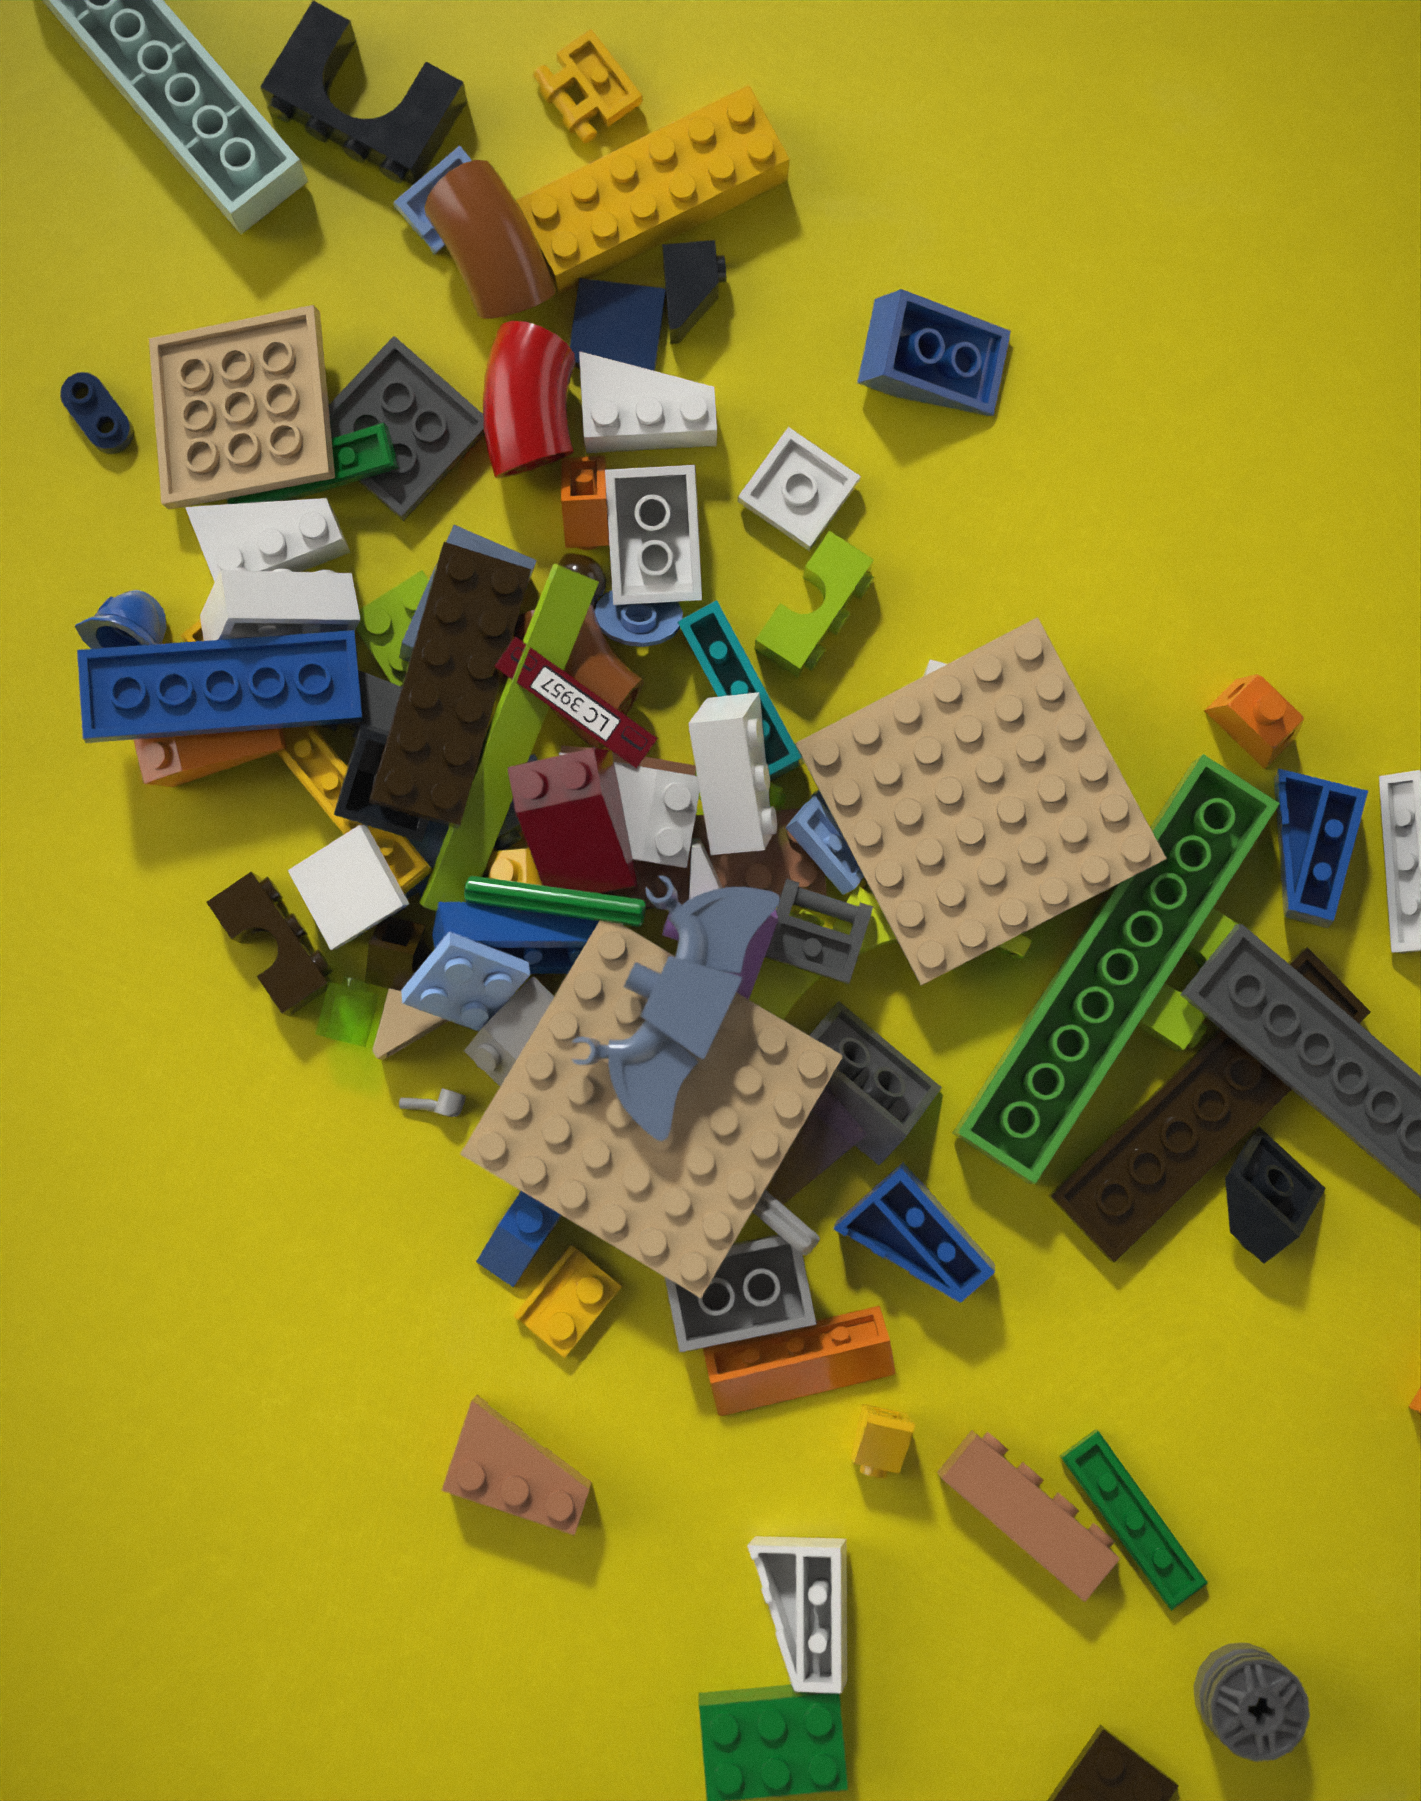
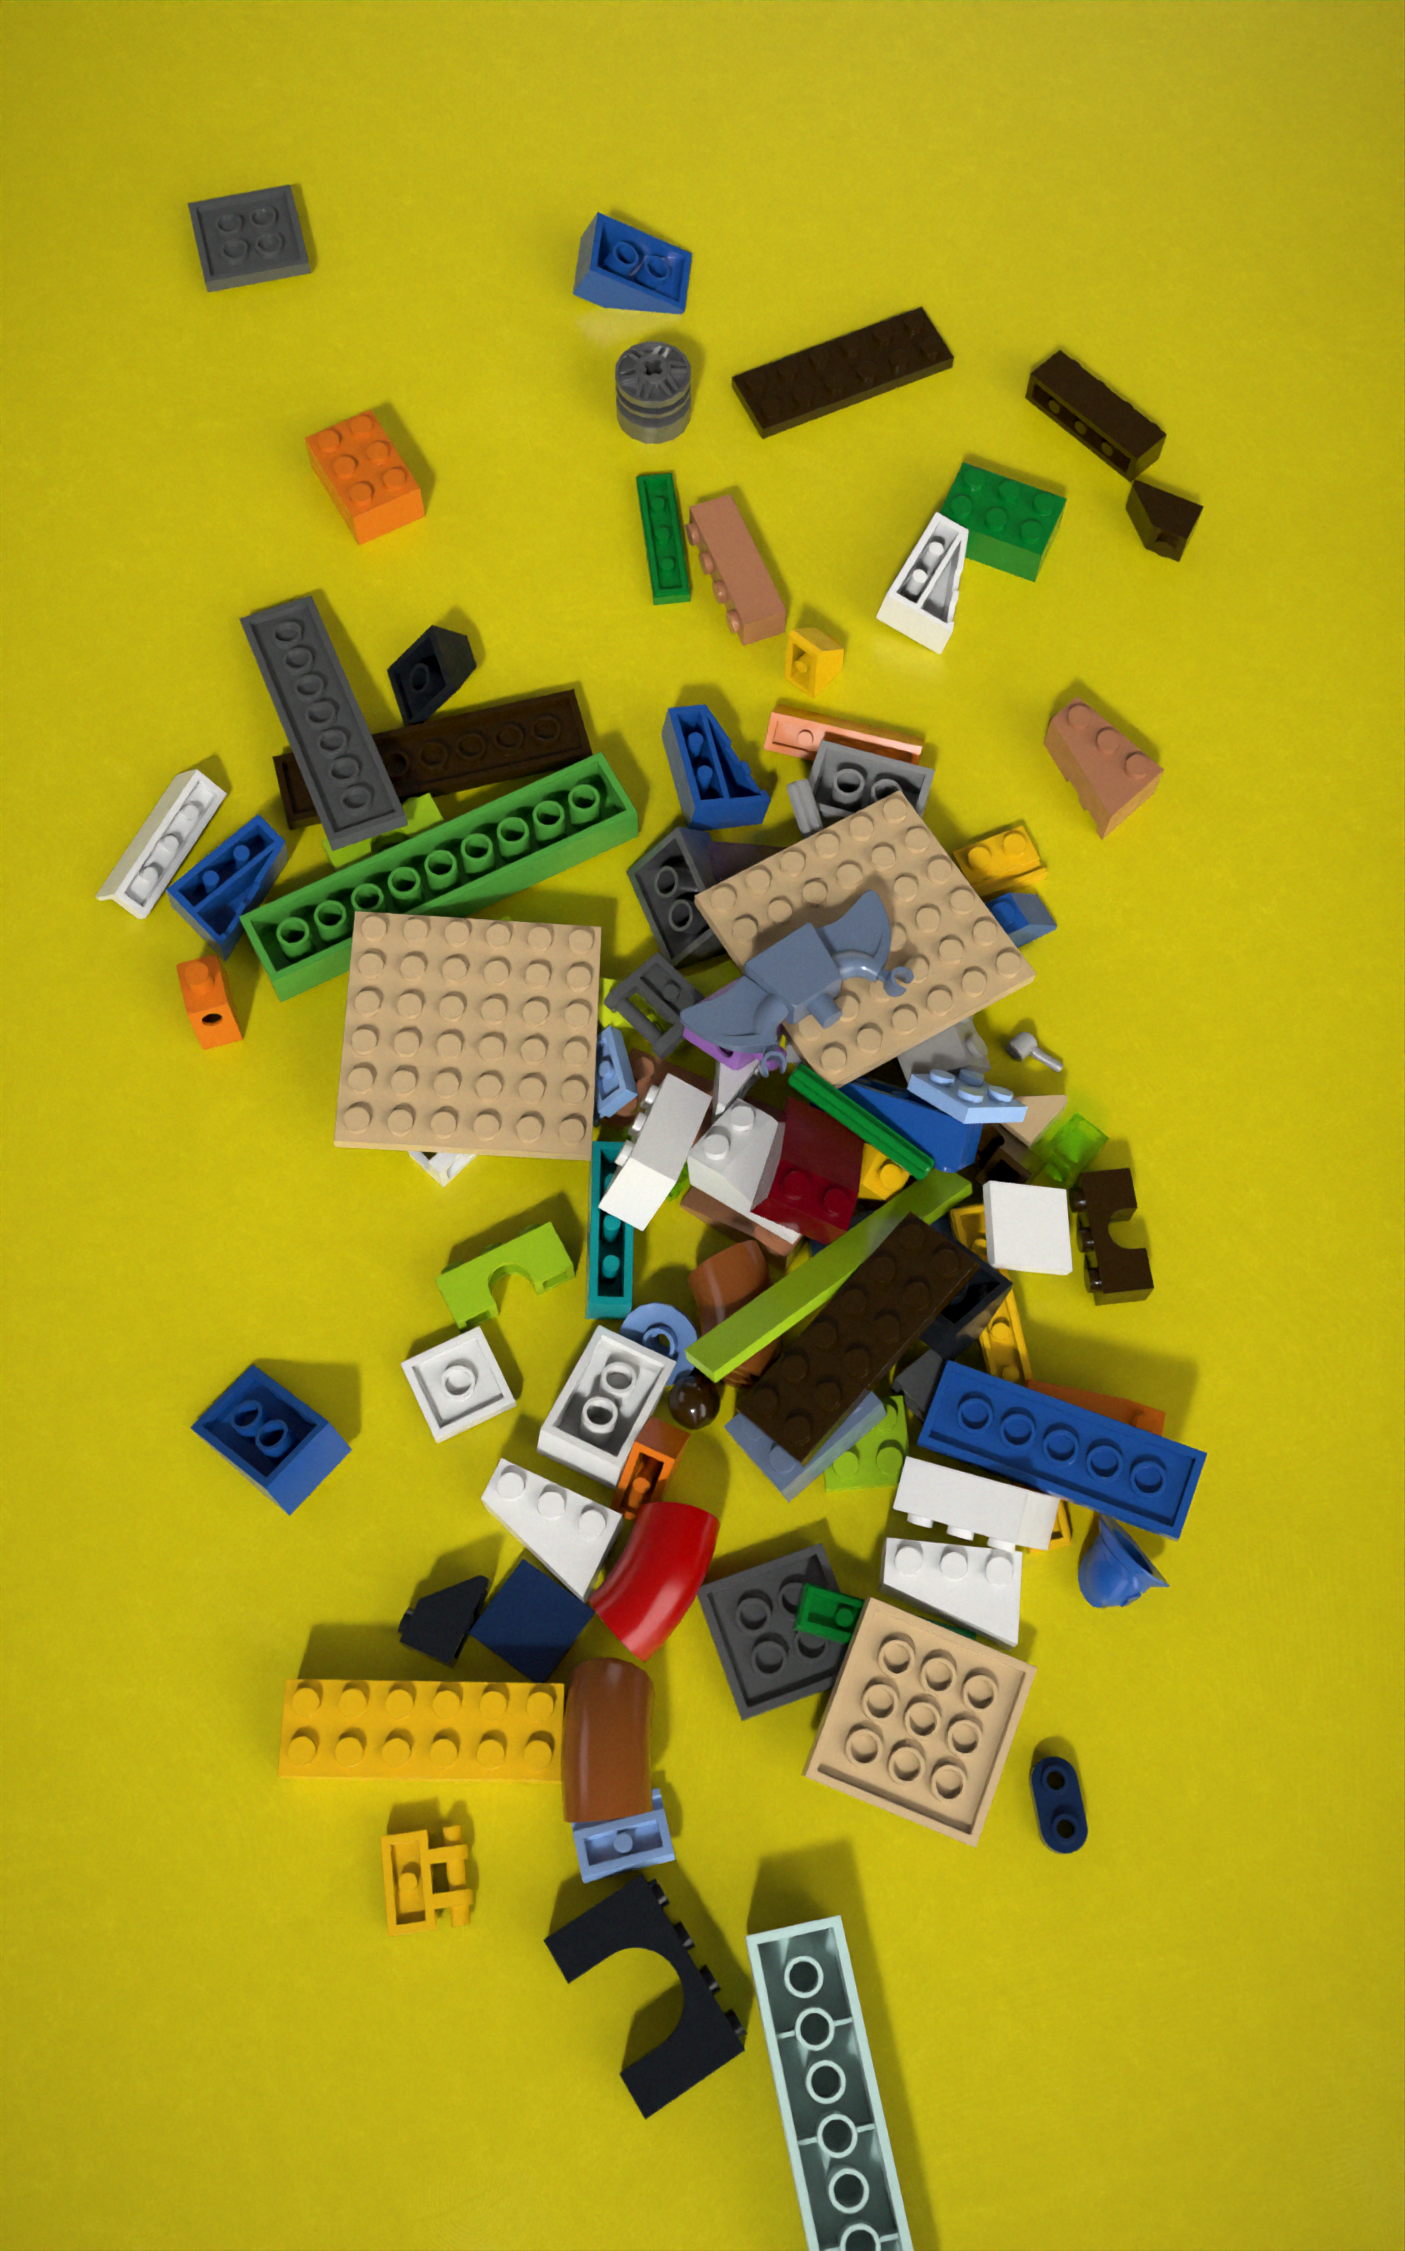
camera: 150 degrees left, 15 degrees down
(577, 703) = (759, 1260): sticker -> none

